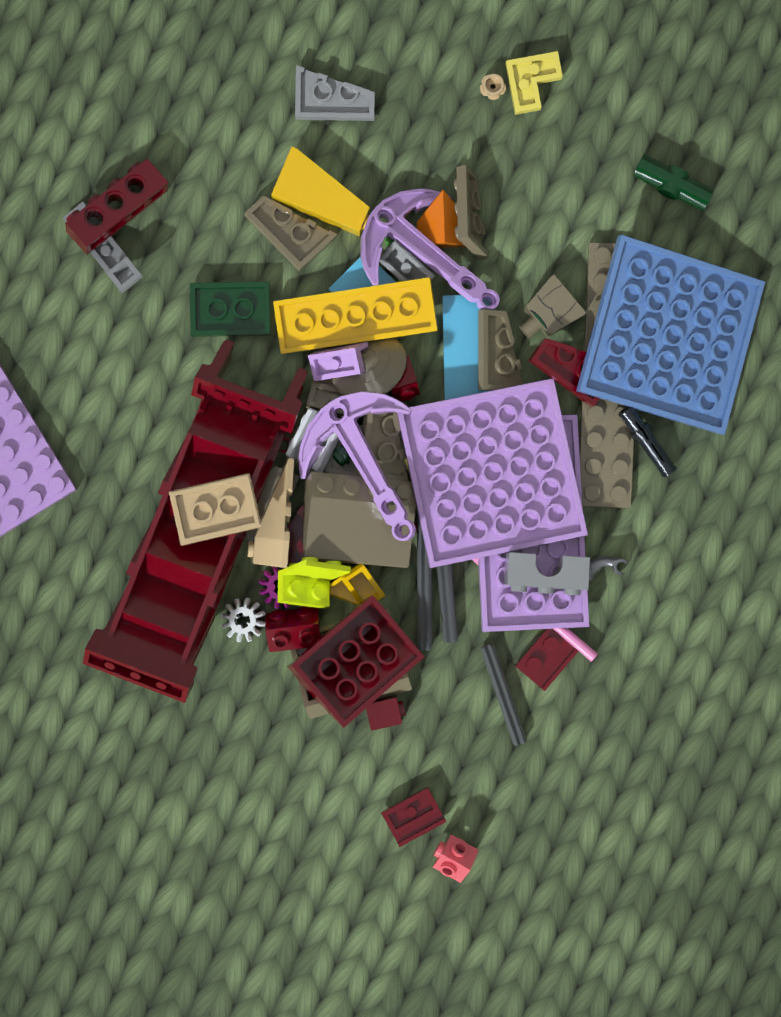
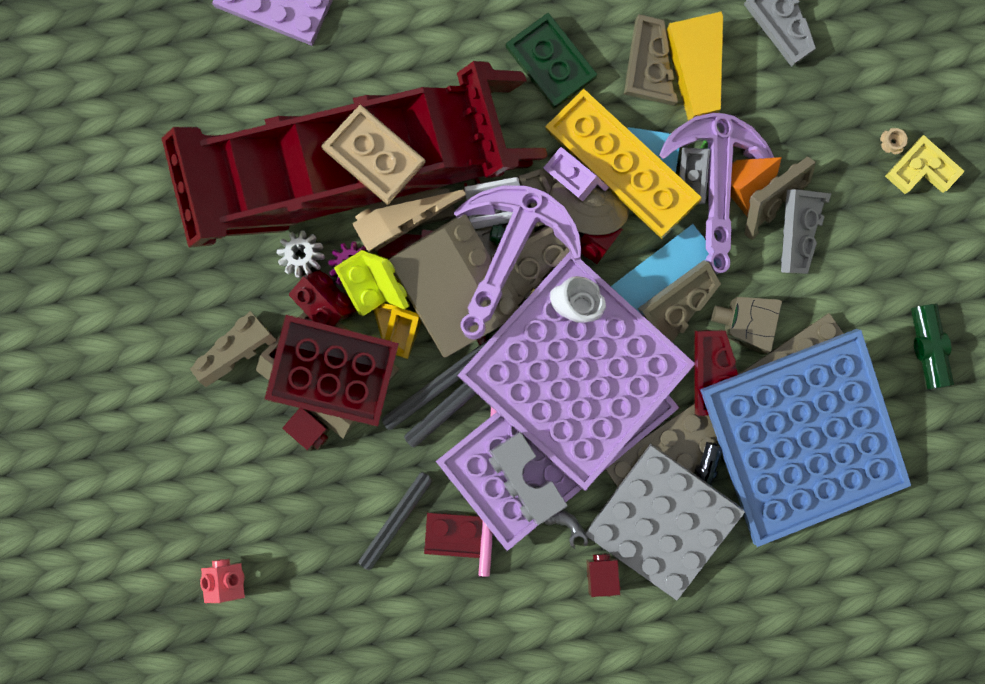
camera: 45 degrees right, 5 degrees down
(279, 719) = (237, 343): none -> dark tan wing
(413, 816) = (234, 520): dark red plate -> none
(443, 428) = (578, 300): none -> white hair
(504, 211) = (800, 225): none -> light grey wing
(654, 491) = (664, 522): none -> light grey plate
(660, 567) = (603, 575): none -> dark red brick

